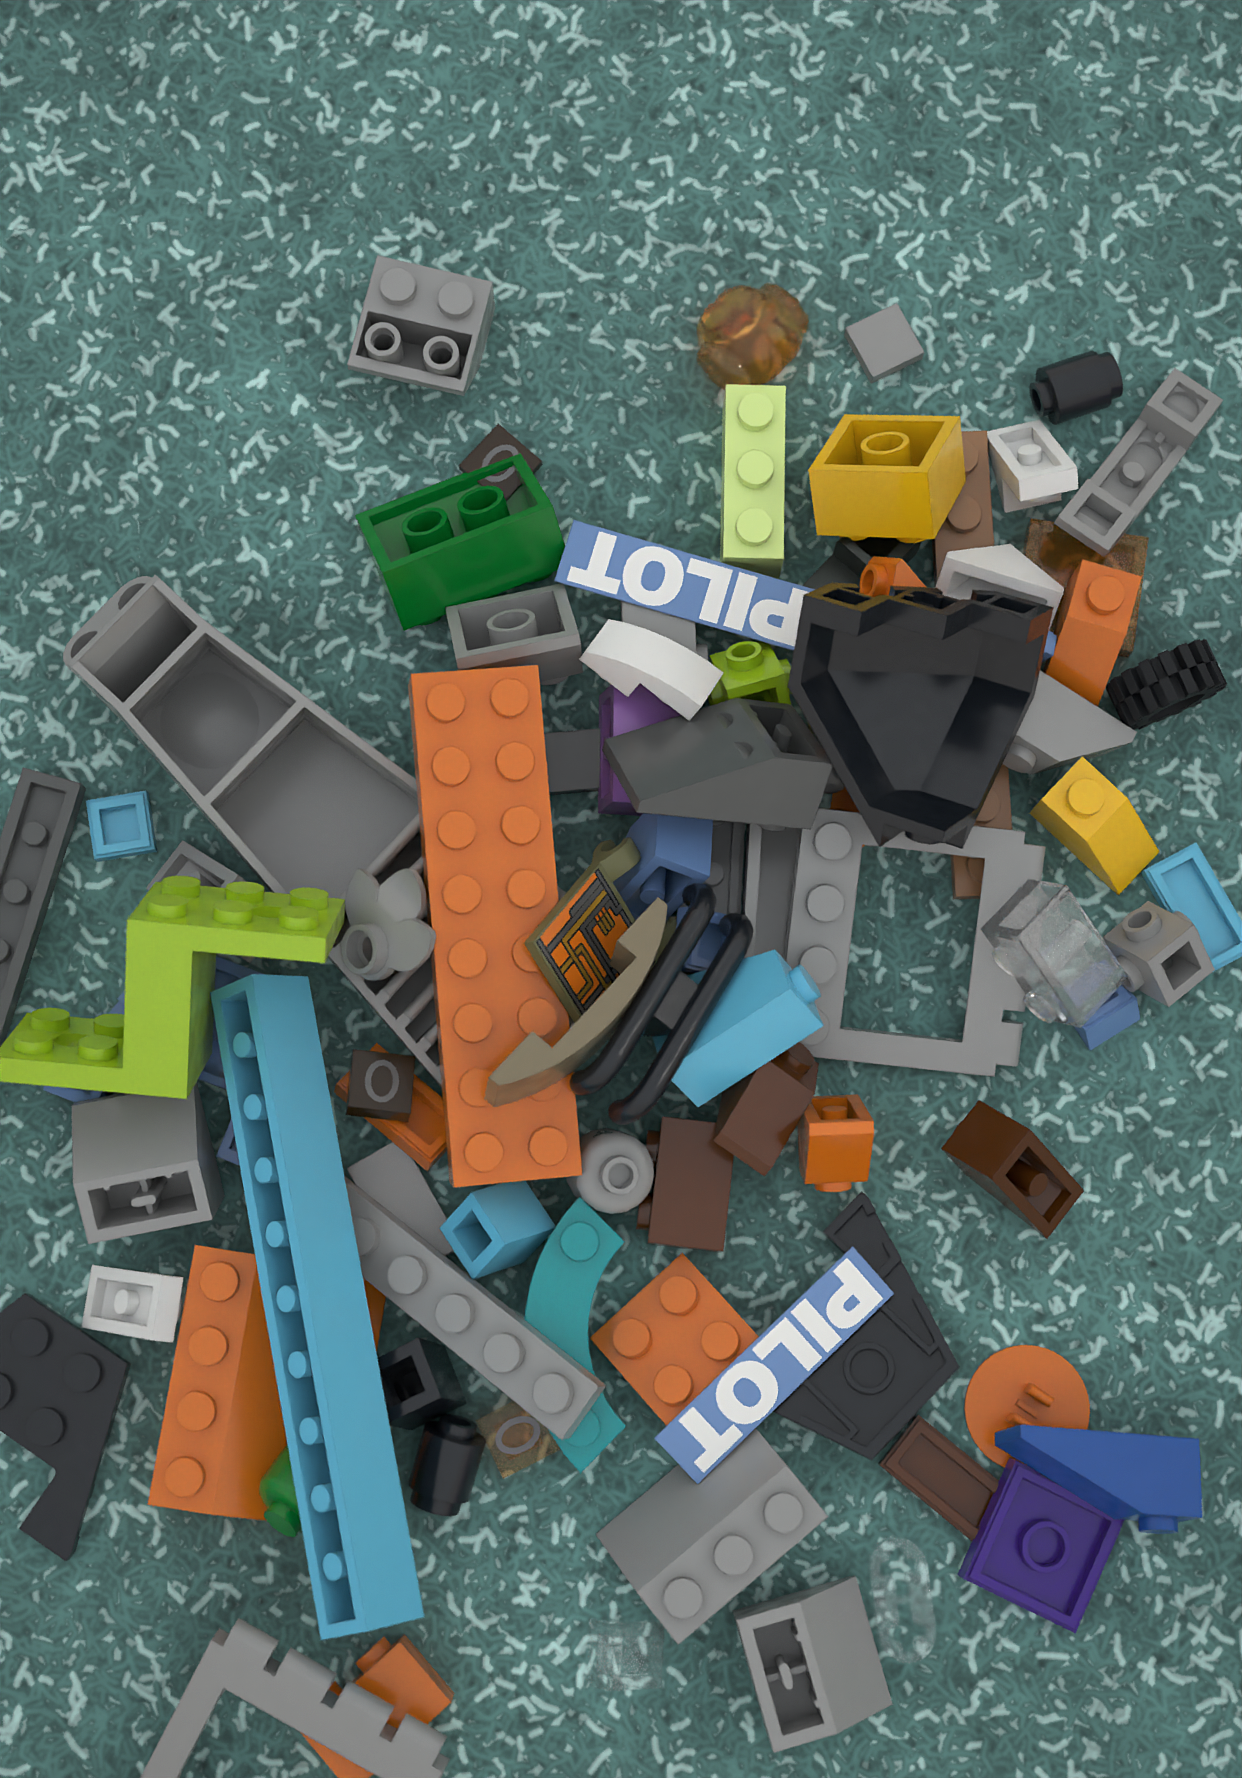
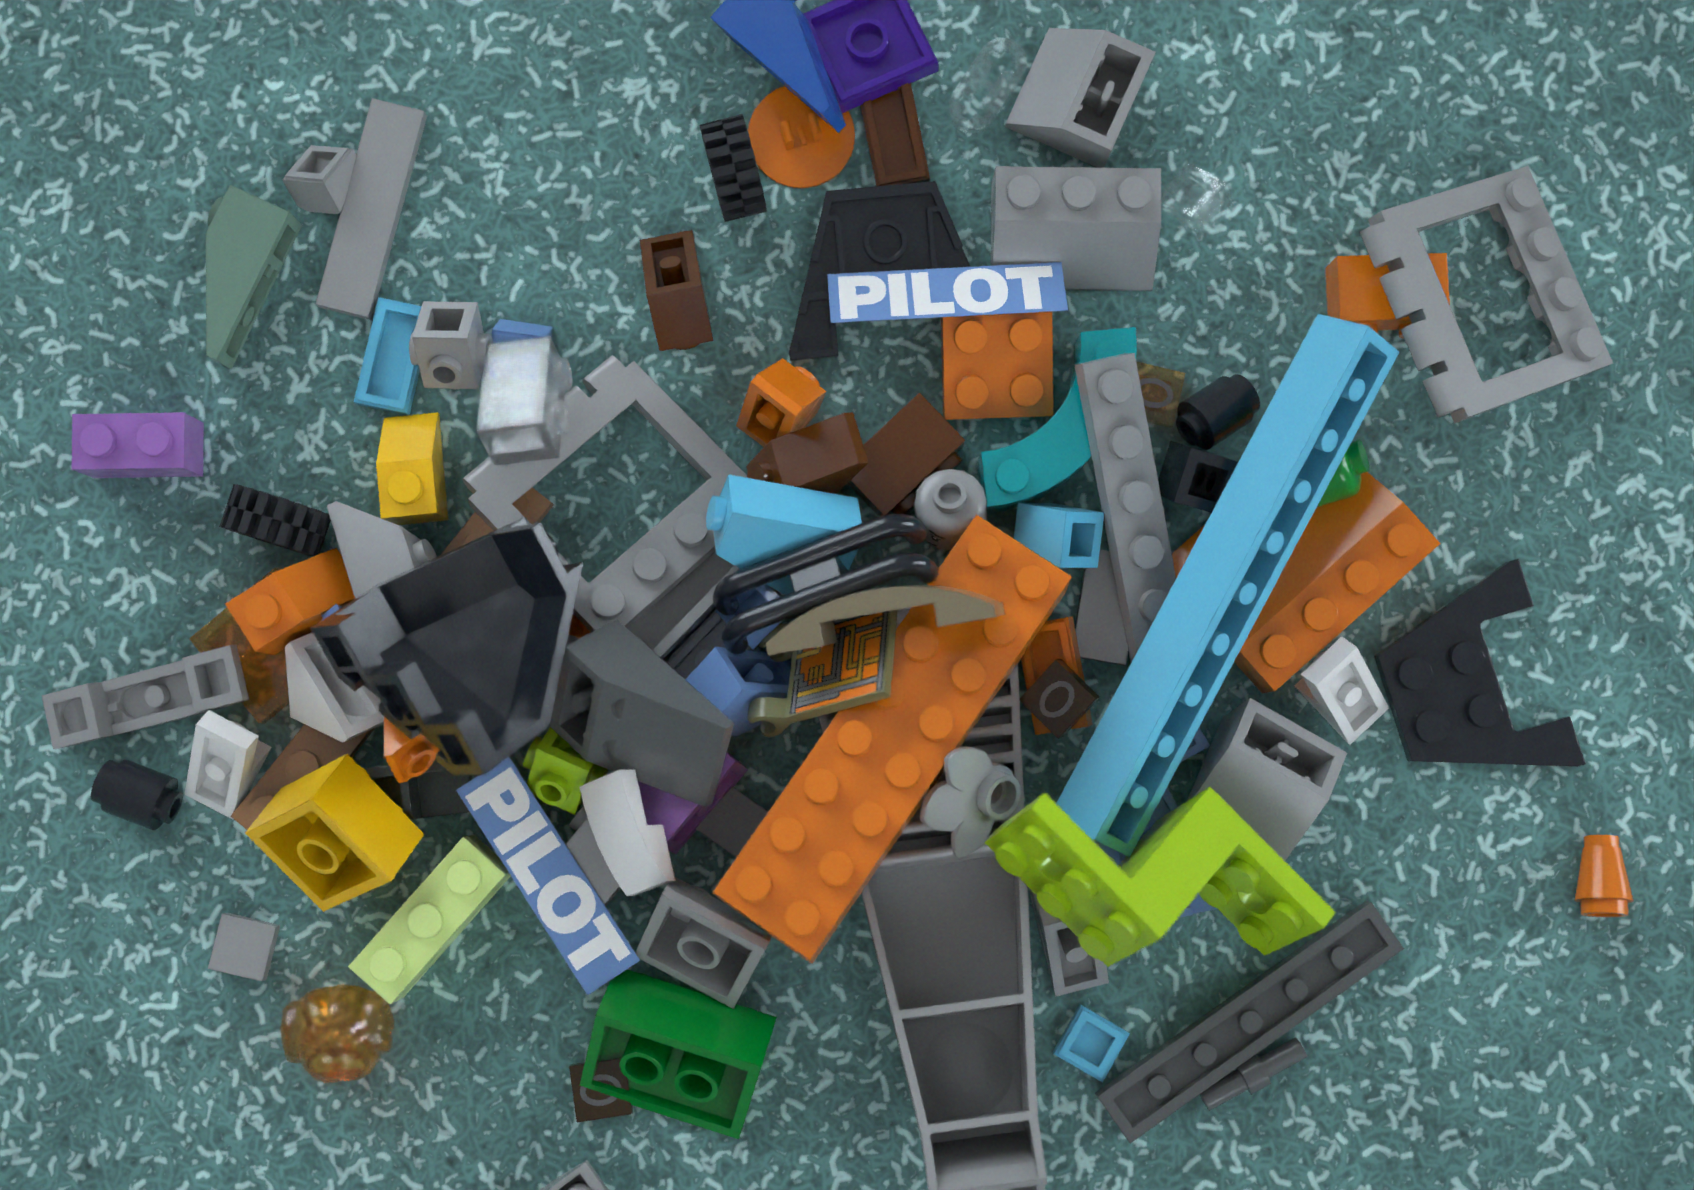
camera: 140 degrees left, 5 degrees up
(1058, 1316) = (733, 167): none -> black tyre

